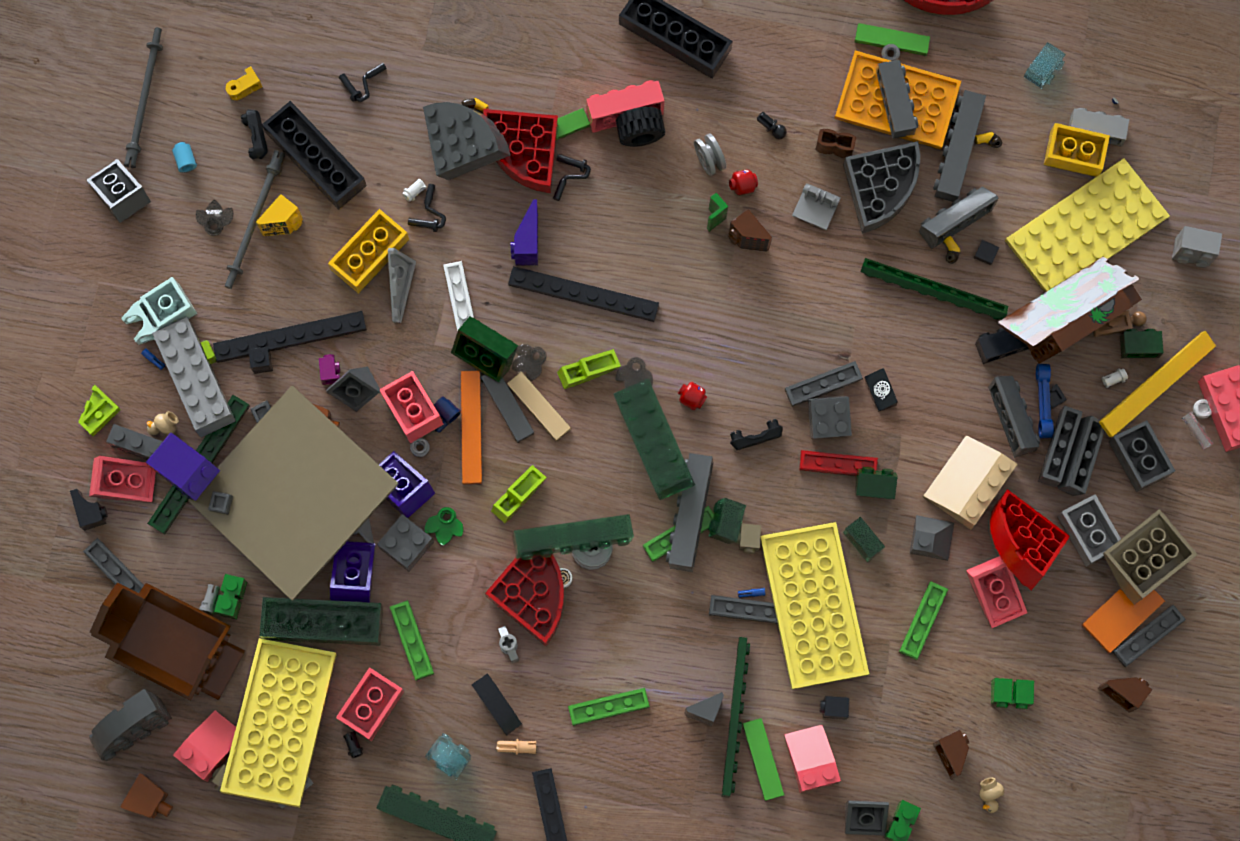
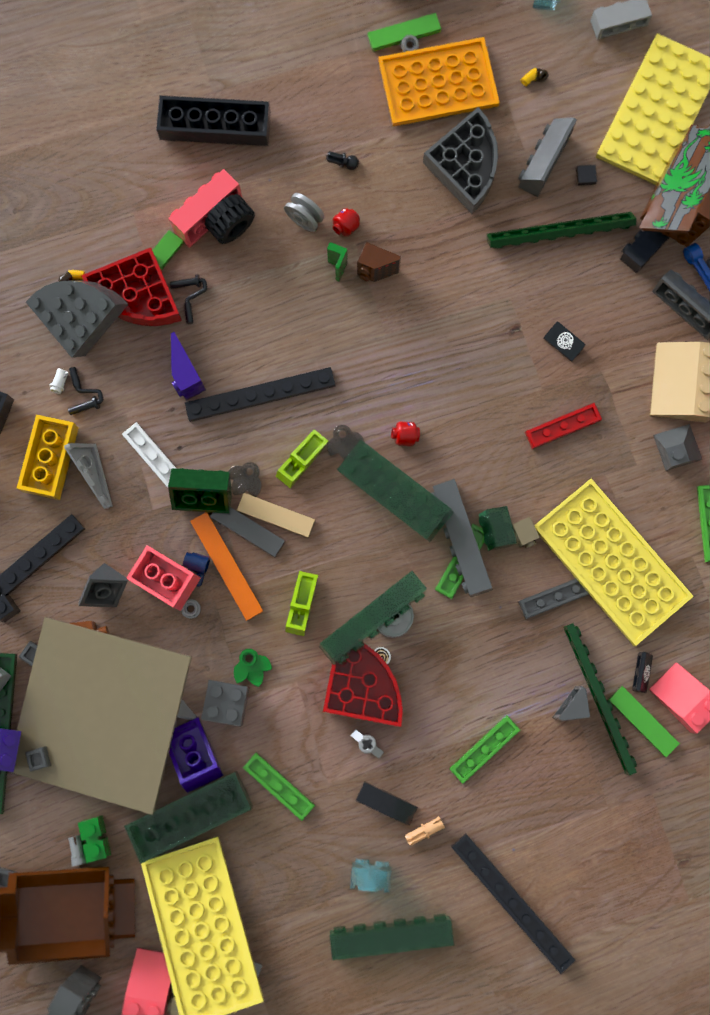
camera: 25 degrees left, 5 degrees up
(329, 369) = (70, 583): magenta brick -> none
(353, 745) = (280, 912): black pin -> none
(370, 704) = (274, 868): coral brick -> none
(412, 487) = (204, 649): dark purple slope -> none
(754, 592) = (555, 577): blue pin -> none
(774, 431) = (469, 453): black piece -> none
(787, 716) = (642, 672): none -> black slope
(816, 206) = (420, 211): light grey hinge -> none
(823, 383) = (512, 362): dark grey plate -> none
(829, 417) = (535, 389): dark grey brick -> none
(835, 143) = (405, 146): reddish brown brick -> none
(835, 707) = (681, 642): black brick -> none
(864, 539) = (623, 480): clear green brick -> none
(876, 483) = (607, 425): dark green brick -> none
(896, 98) = (438, 79): dark grey brick -> none
(953, 250) = (558, 188): arm -> none
(960, 145) = (514, 94): dark grey brick -> none
(1076, 150) = (615, 45): yellow brick -> none

